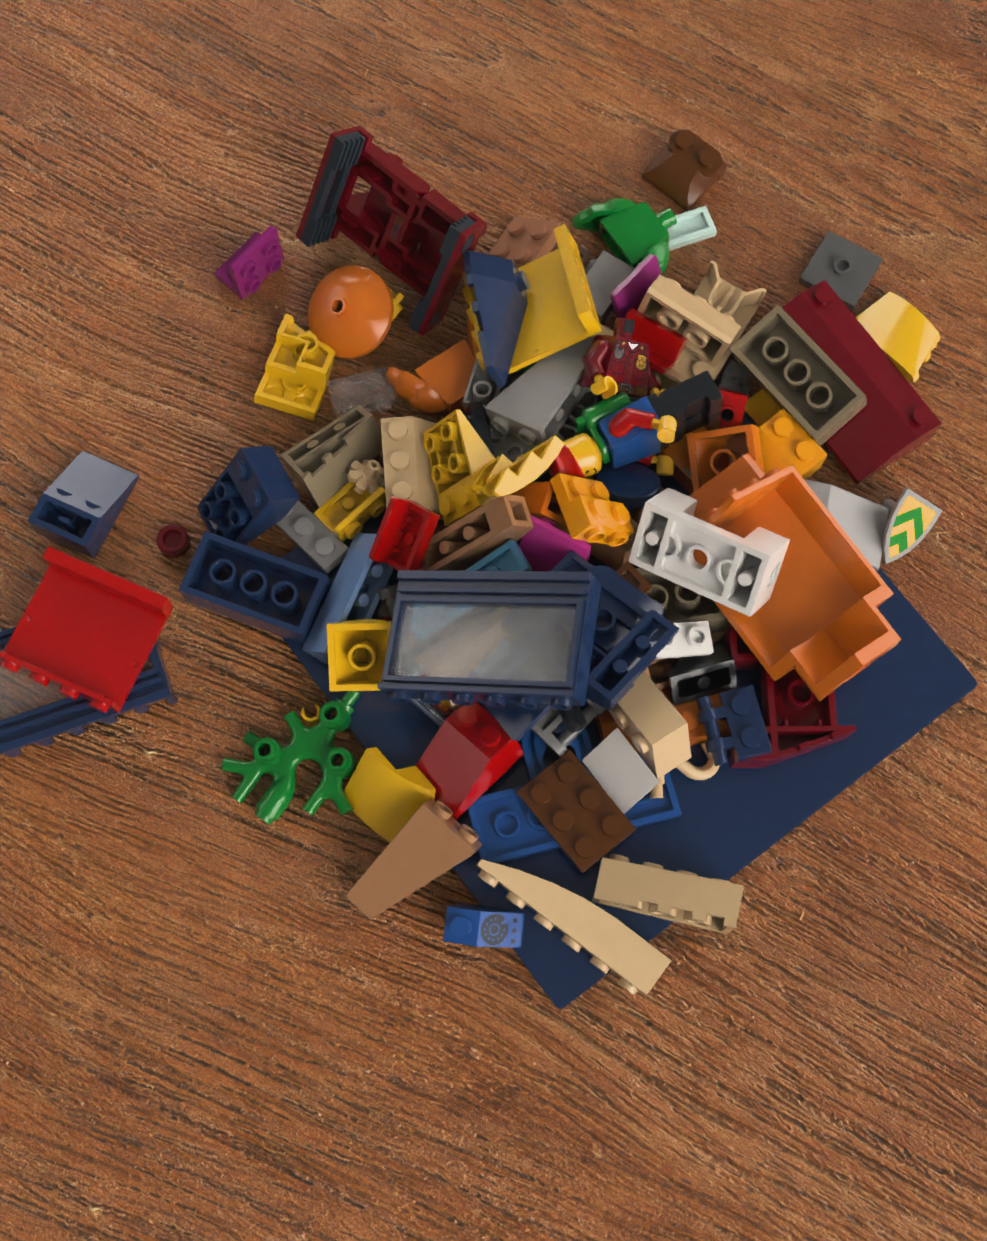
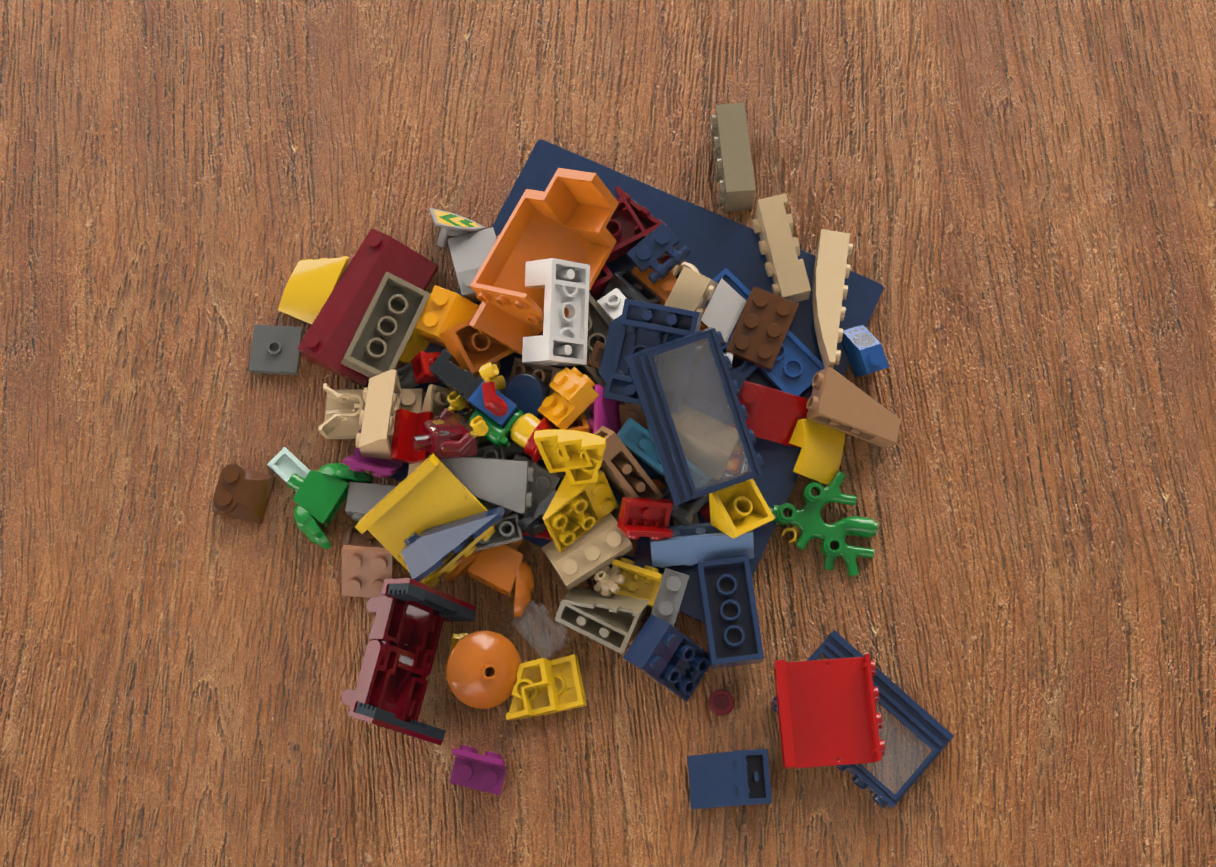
camera: 115 degrees left, 0 degrees up
(832, 906) = (732, 157): none -> dark tan brick

